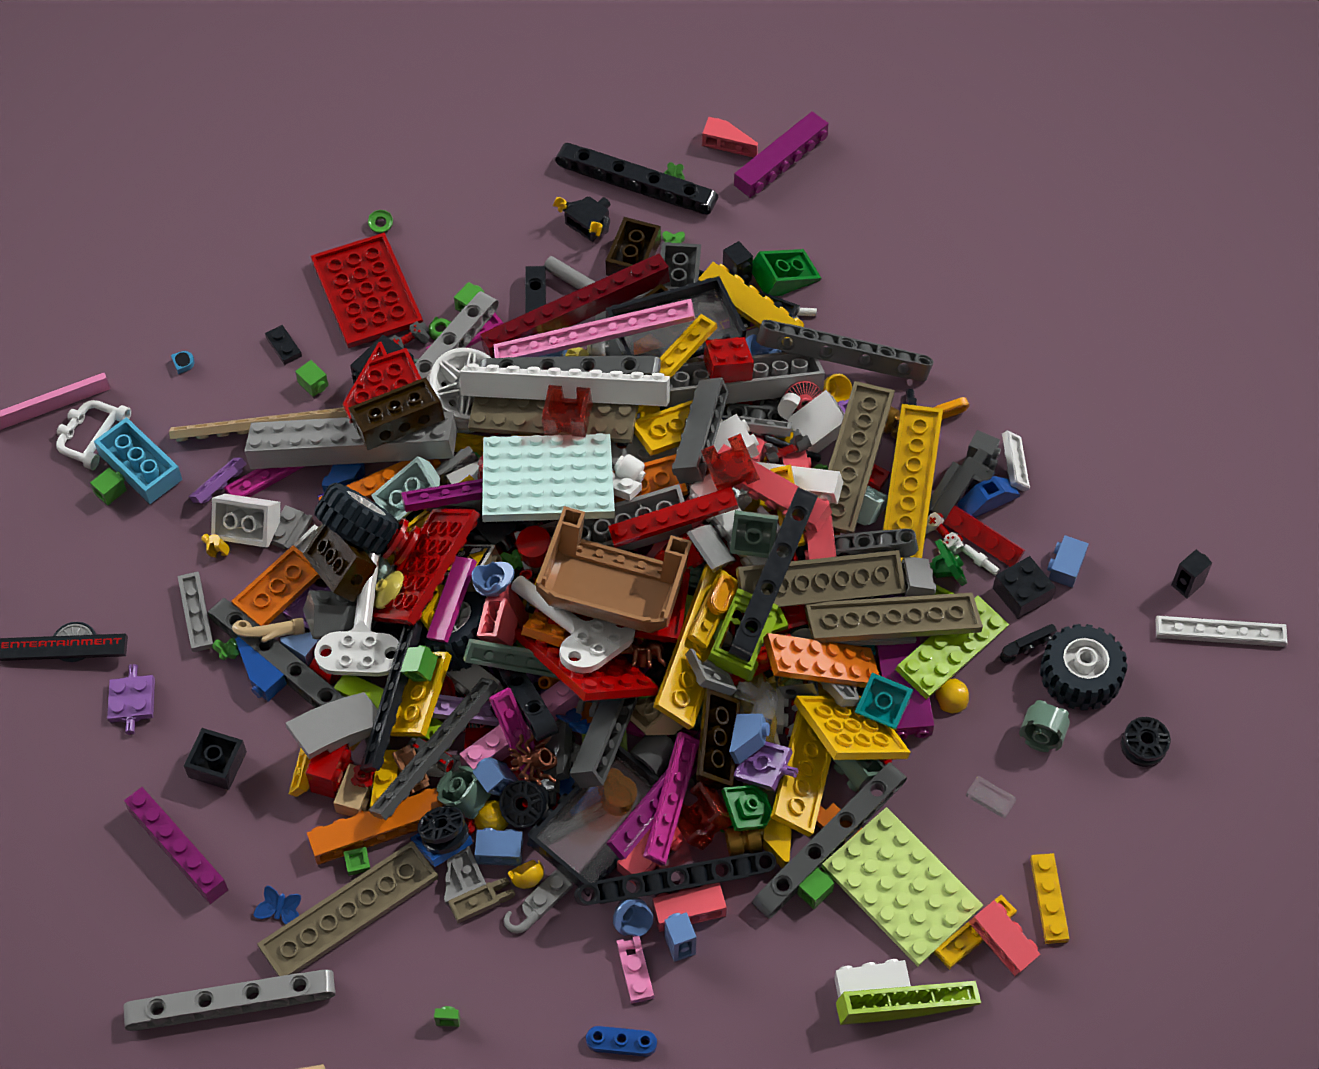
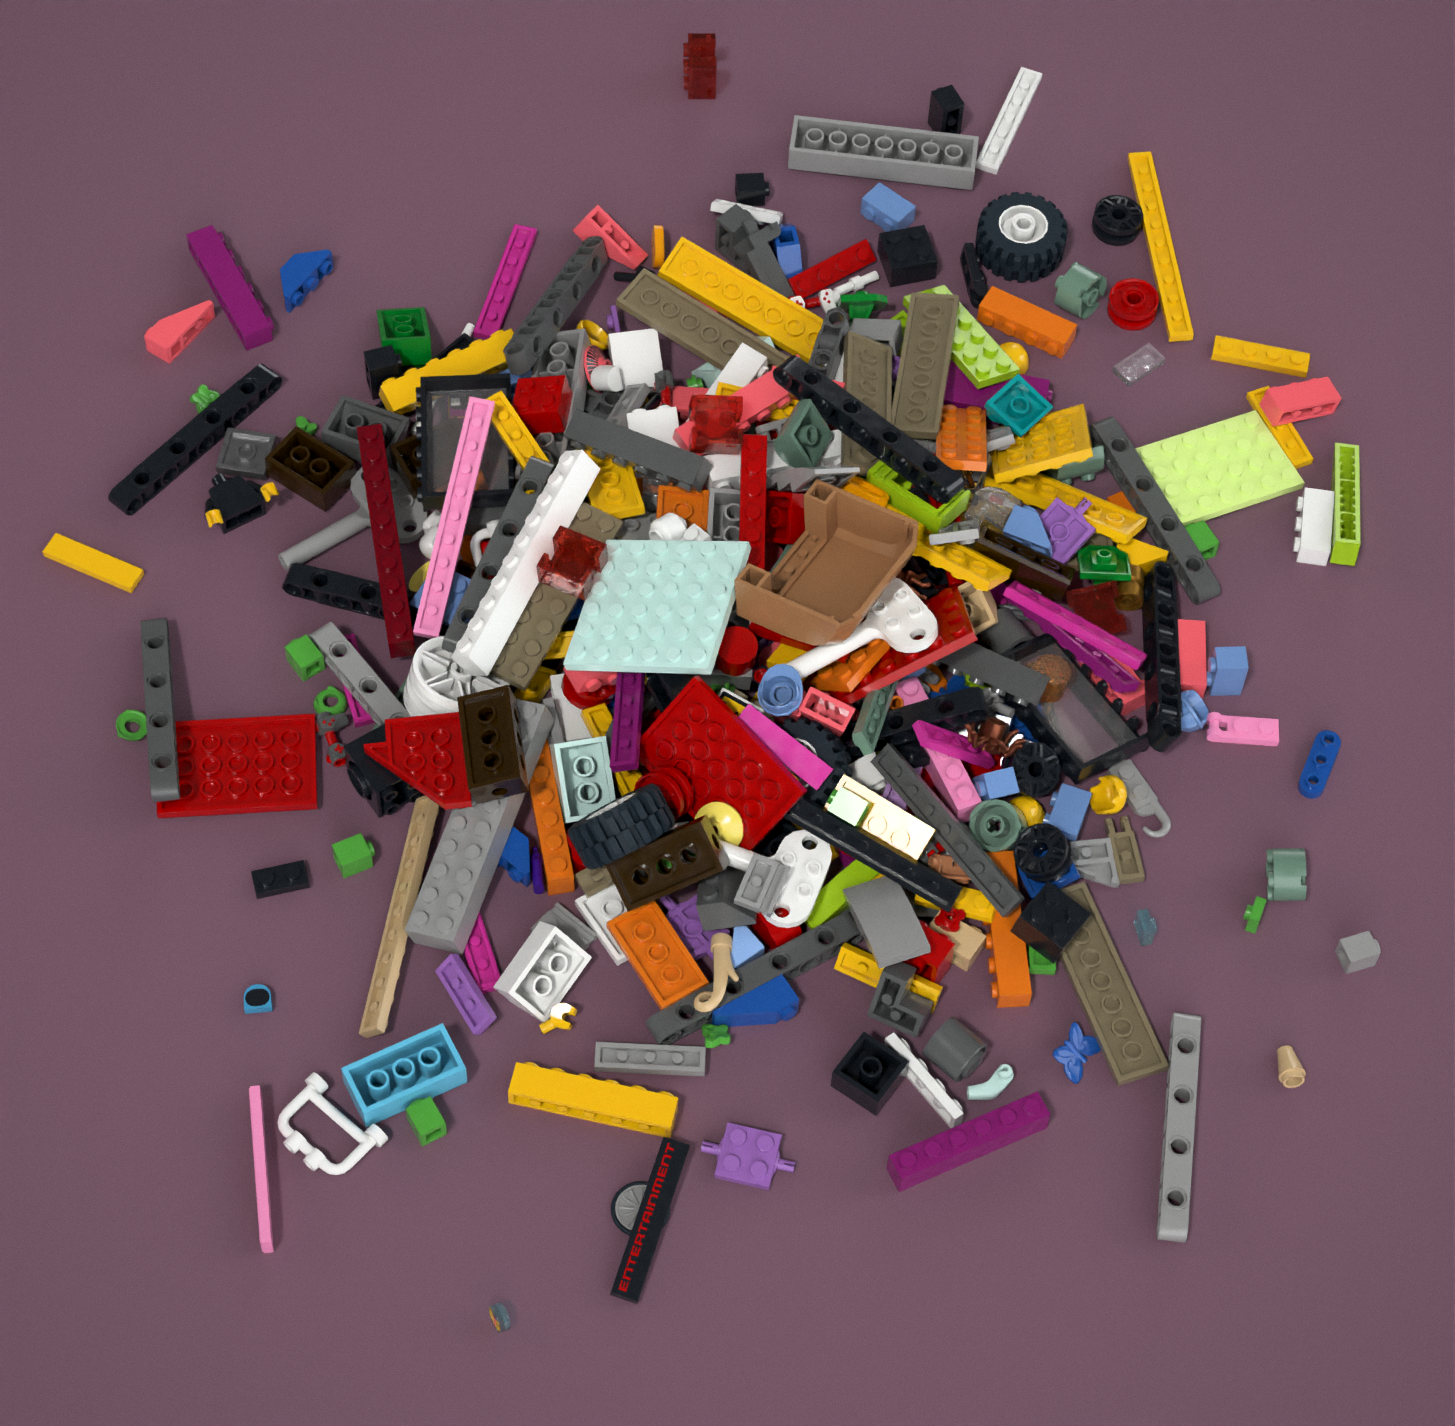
camera: 75 degrees left, 0 degrees up
(151, 584) = (593, 1099): none -> yellow brick
(218, 805) = (930, 1088): none -> white plate
(233, 854) = (994, 1086): none -> light aqua arm
(251, 813) = (955, 1050): none -> dark grey piece
(280, 763) = (897, 1005): none -> dark grey brick
(337, 627) = (761, 885): none -> light grey plate
(378, 850) = (1050, 922): none -> black brick
(389, 227) = (160, 710): none -> dark grey beam
(409, 932) = (1145, 927): none -> clear light blue plate
(488, 1030) = (1286, 874): none -> sand green brick
(508, 157) = (93, 562): none -> yellow tile
(636, 207) = (245, 453): none -> flat silver plate
(810, 192) = (303, 274): none -> blue slope
(871, 321) = (505, 281): none -> dark pink tile
(940, 375) = (617, 242): none -> coral slope
(996, 696) = (1026, 322): none -> orange brick
(1040, 456) = (751, 189): none -> black brick
(1055, 764) = (1132, 304): none -> red wheel
(1126, 541) = (883, 152): none -> light grey brick
(1134, 784) = (1160, 247): none -> yellow plate
(1153, 376) = (700, 66): none -> clear red piece

